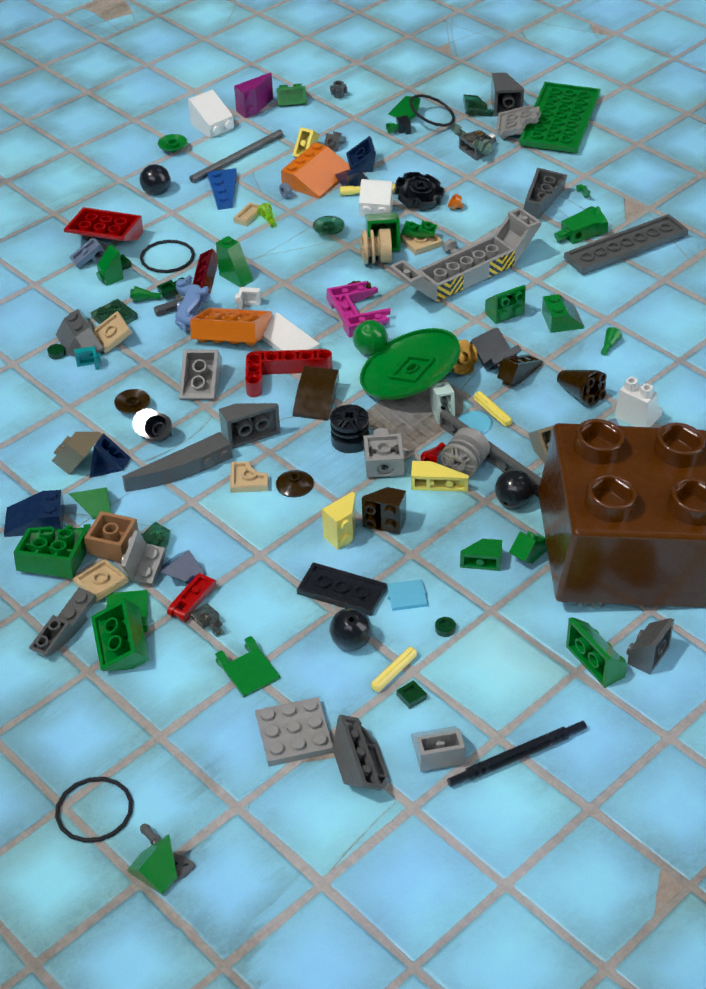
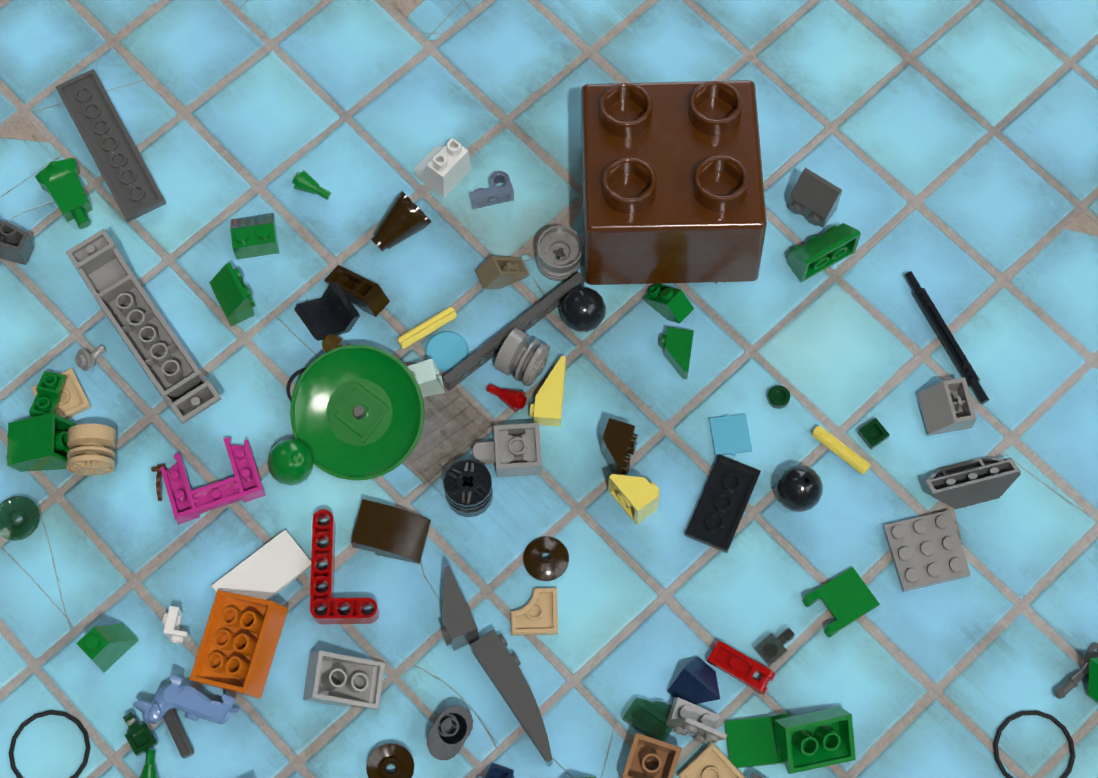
camera: 90 degrees left, 25 degrees up
(206, 269) = (100, 692): dark red slope -> none

